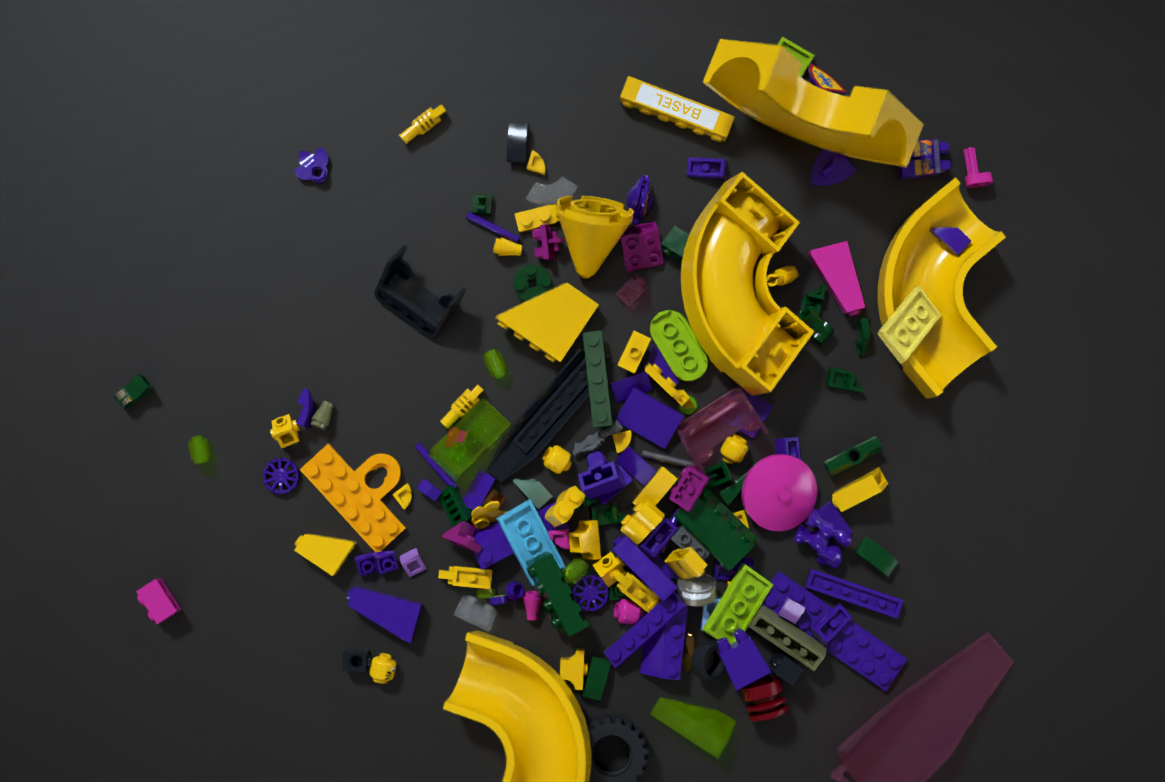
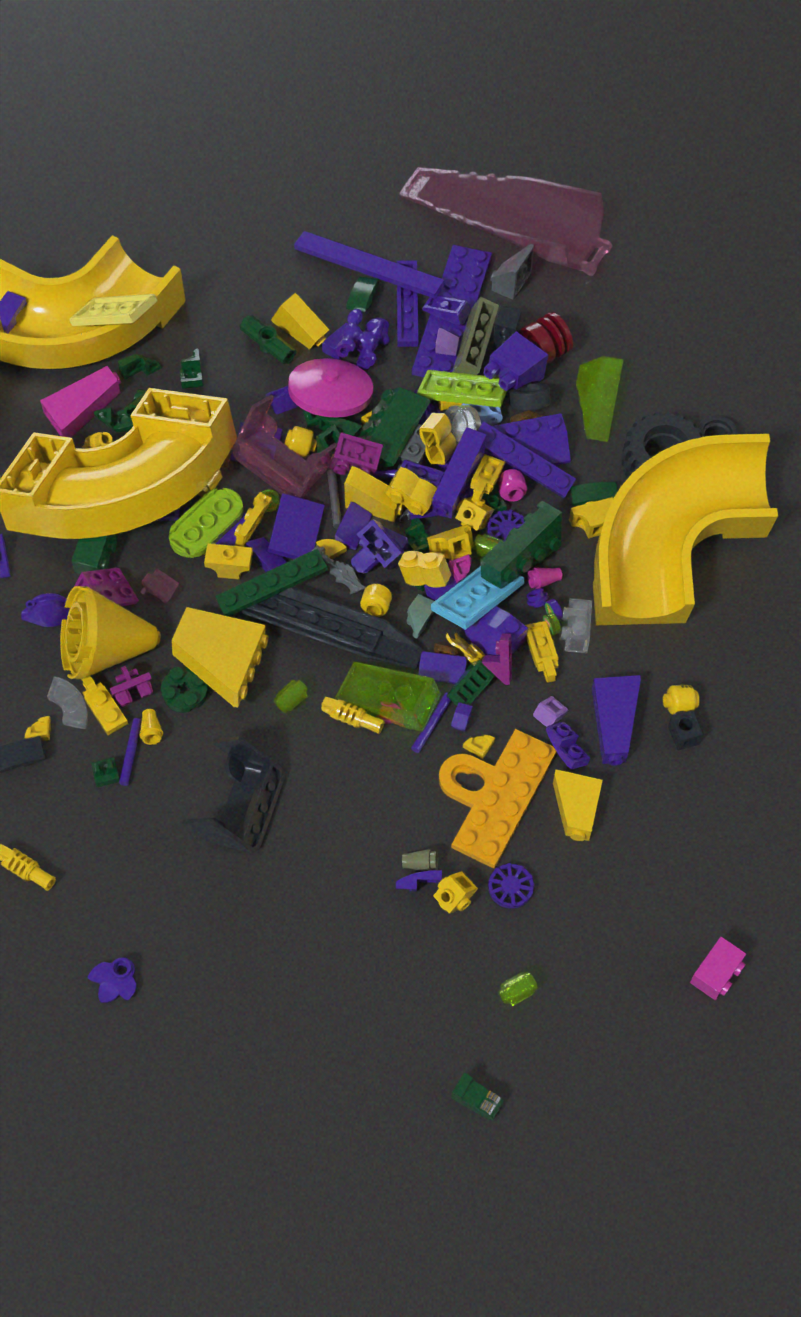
camera: 110 degrees left, 25 degrees down
(851, 698) = (513, 273): none -> dark grey slope
(906, 573) = (369, 264): none -> dark purple tile

